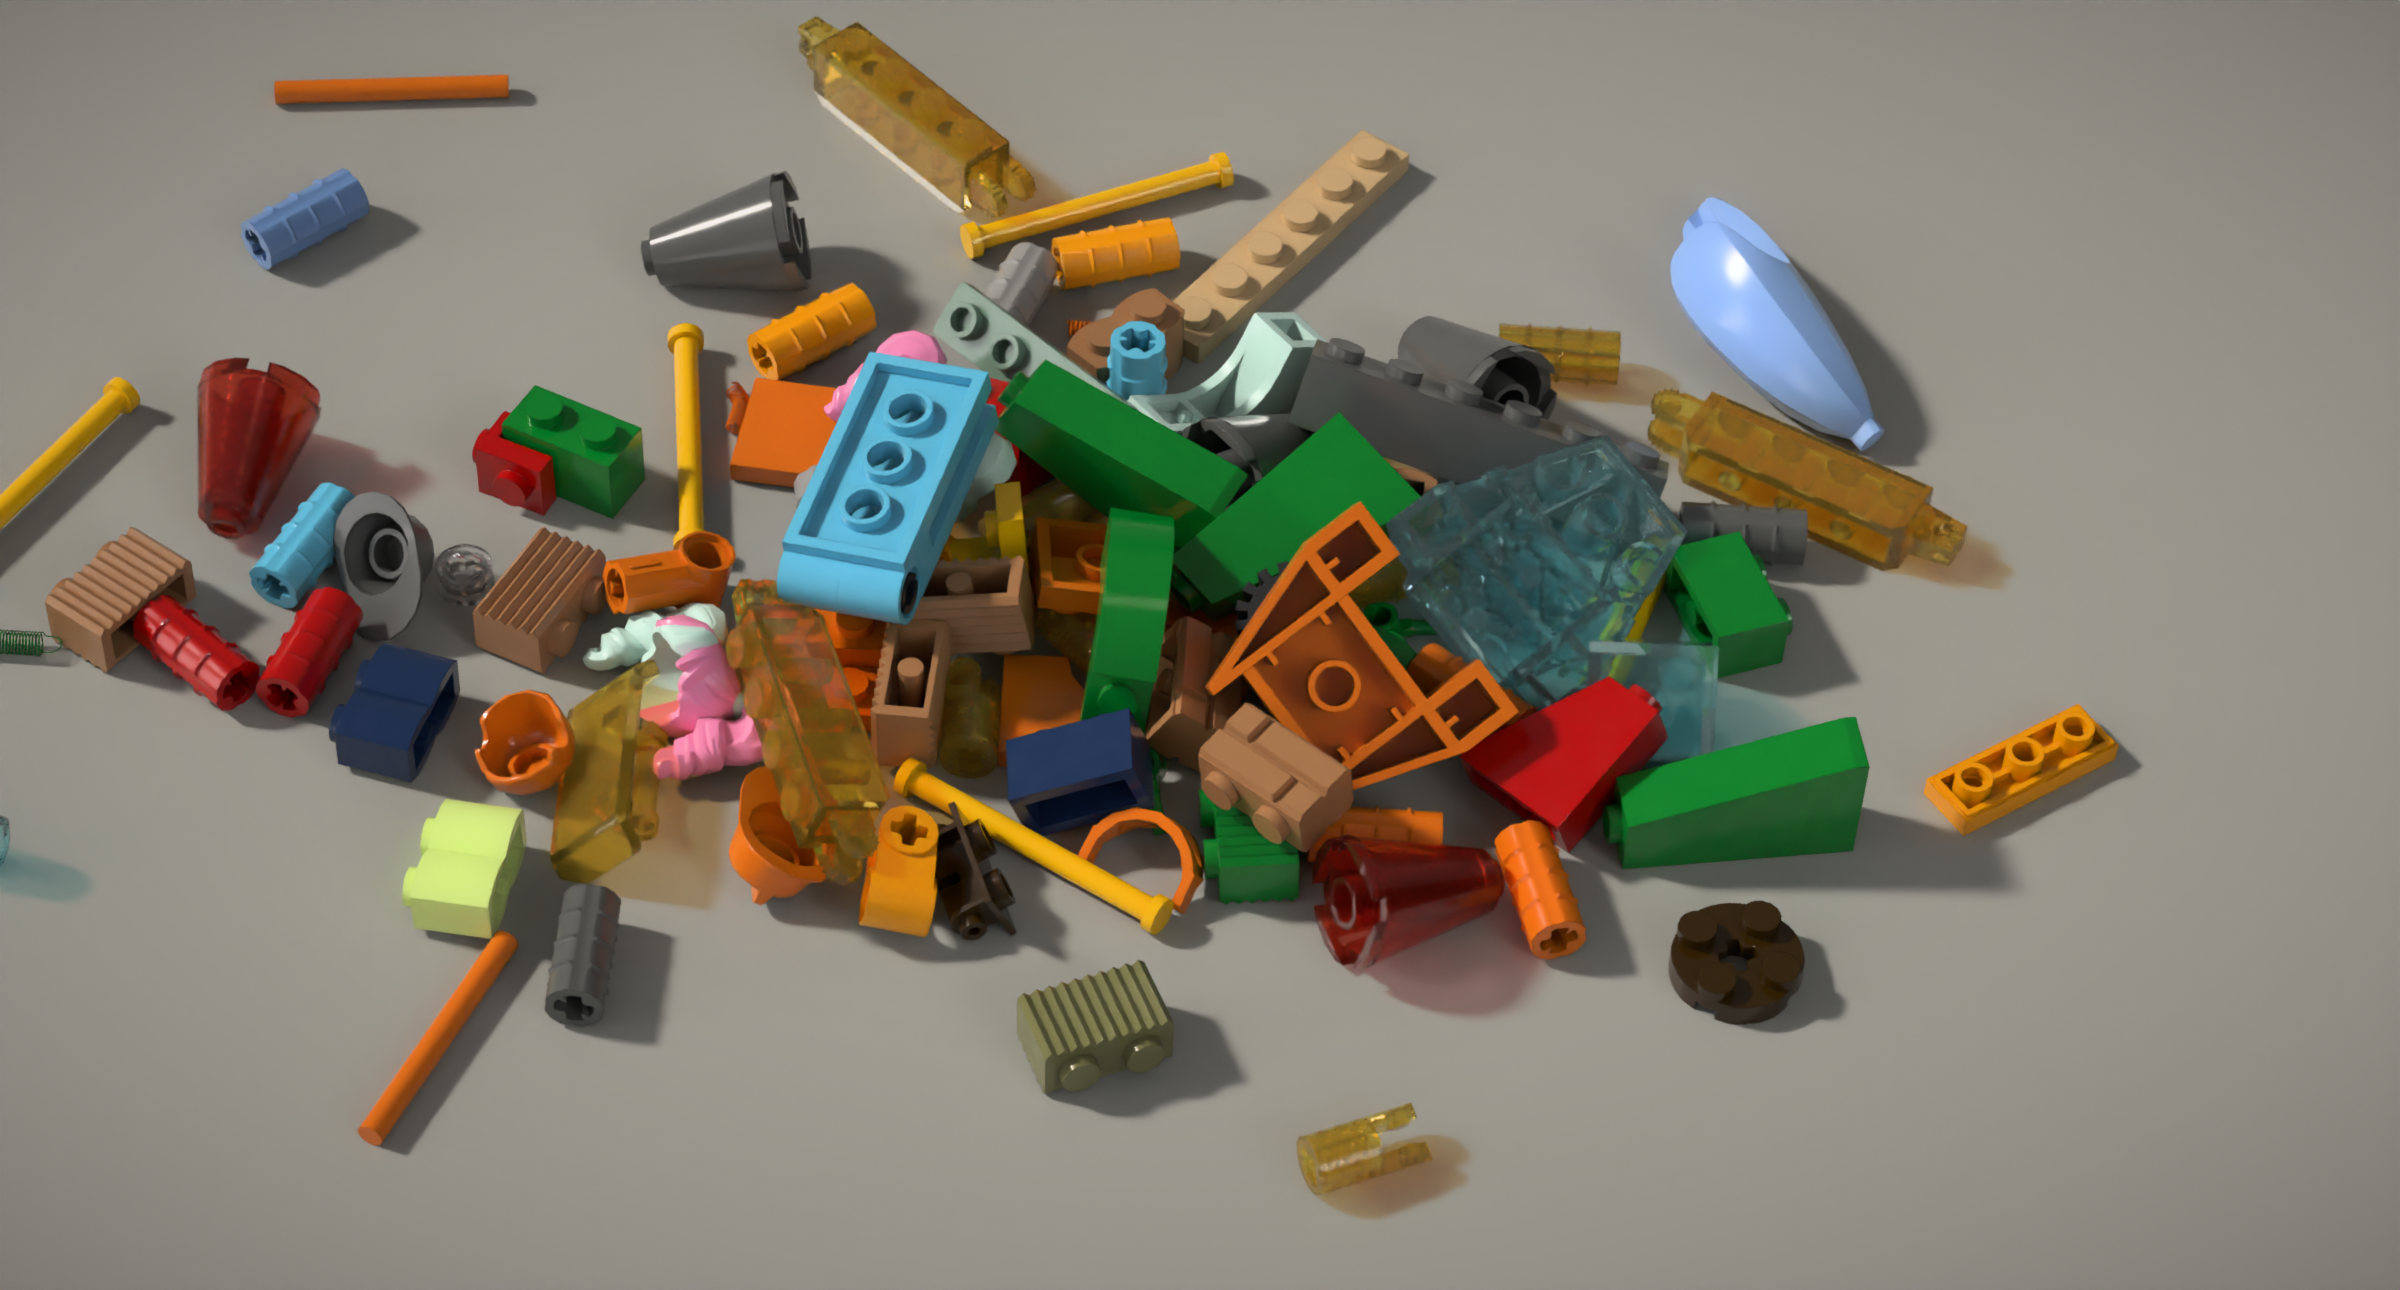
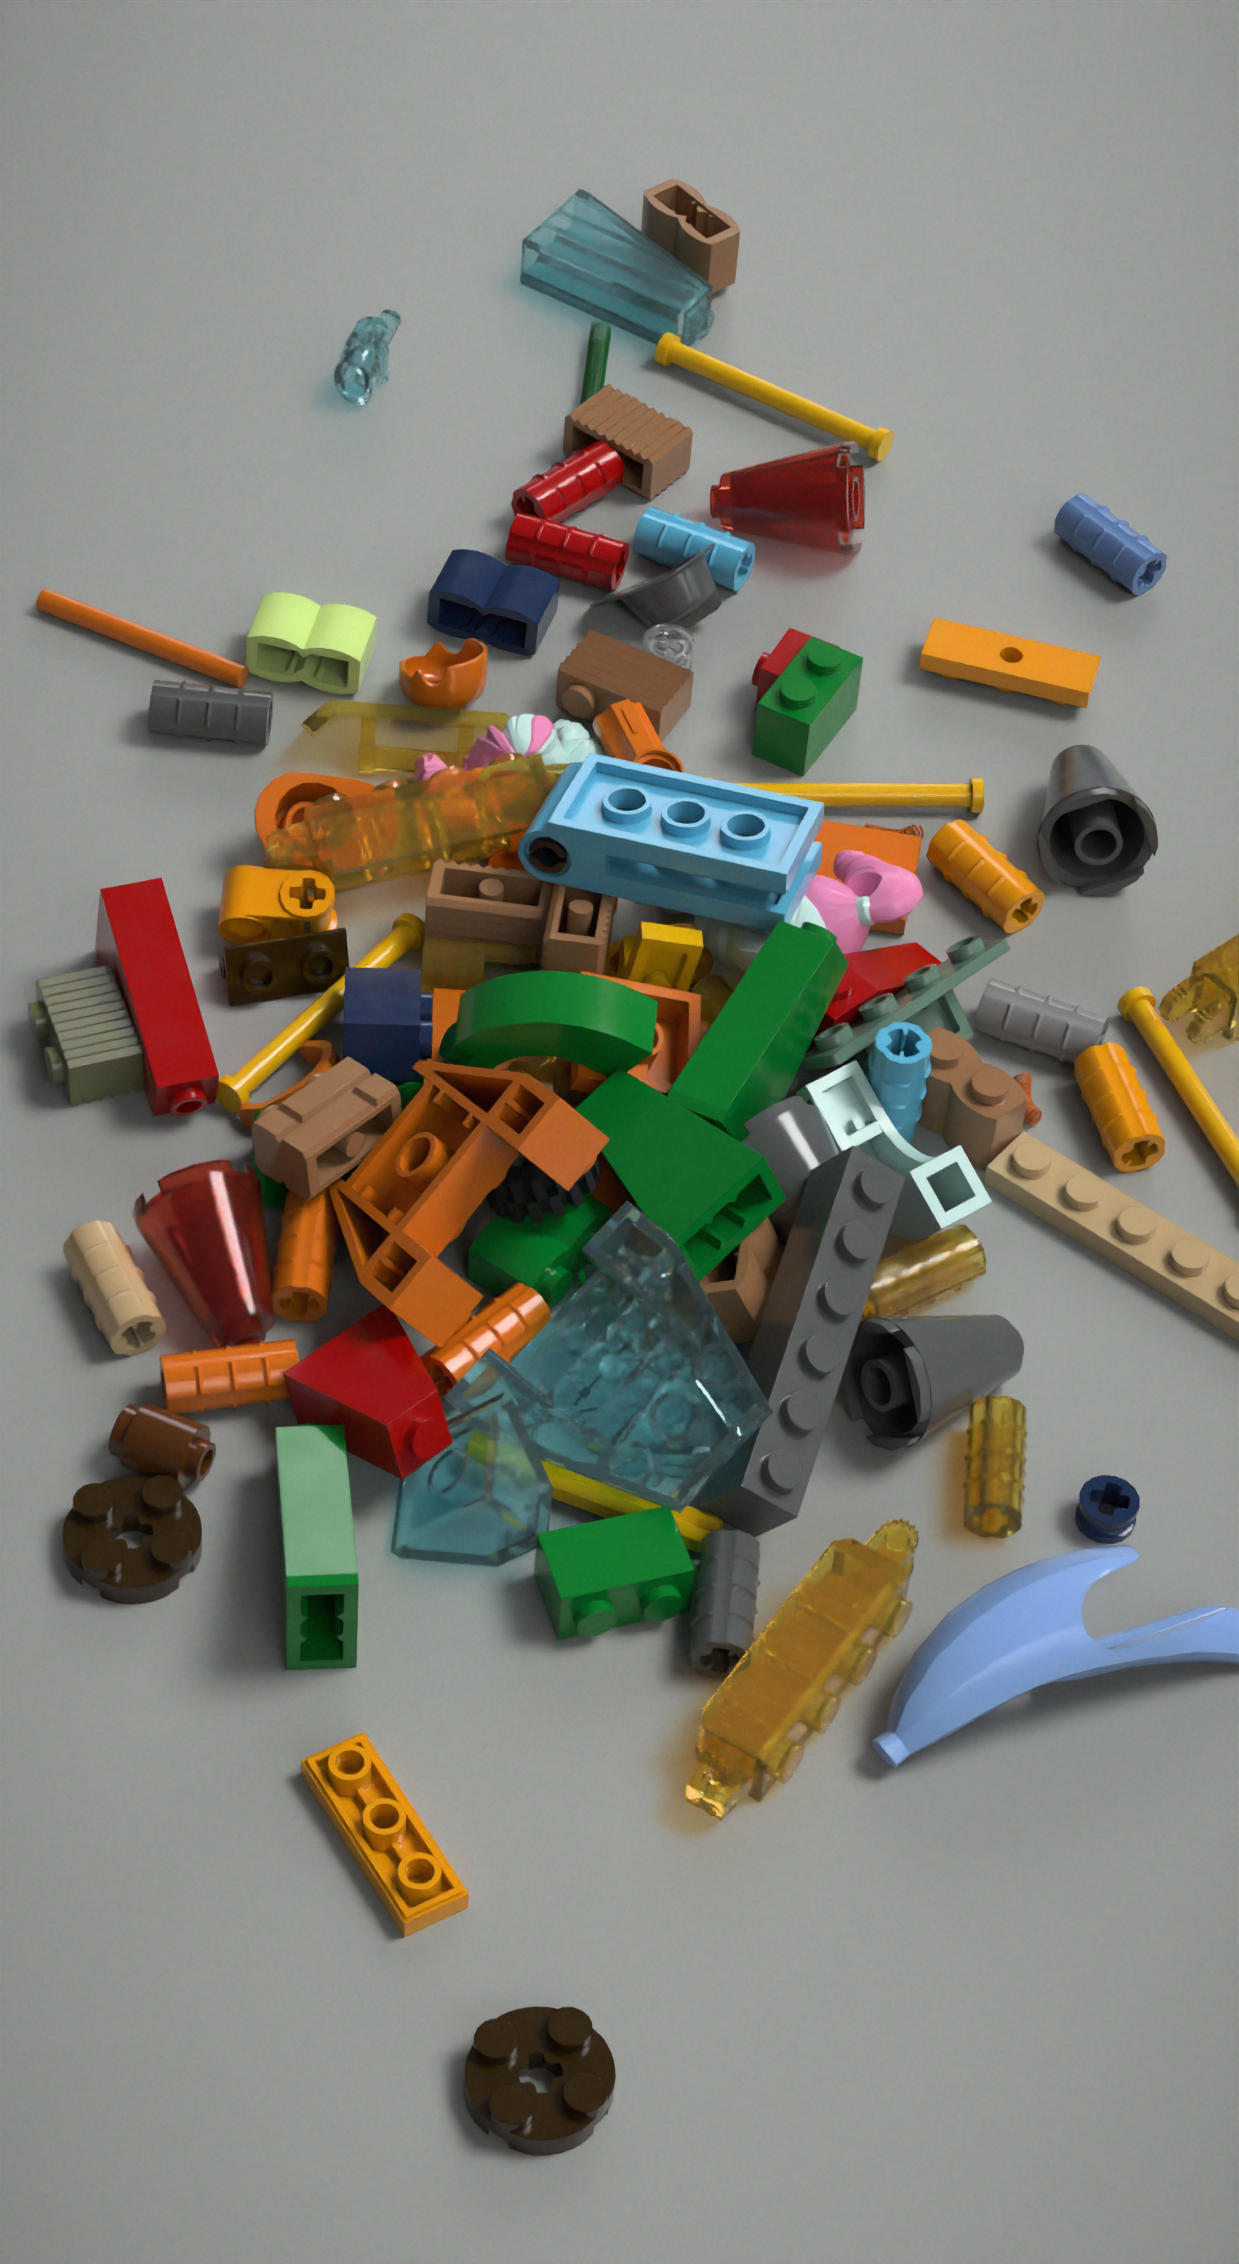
camera: 90 degrees right, 0 degrees up
(491, 303) = (1009, 662): none -> light orange tile
(1011, 951) = (151, 971): none -> red slope
(1440, 986) = (114, 1288): none -> tan axle
(1586, 278) = (1111, 1491): none -> dark blue bush
(1634, 935) = (162, 1444): none -> reddish brown brick
(2244, 632) = (549, 2040): none -> dark brown plate

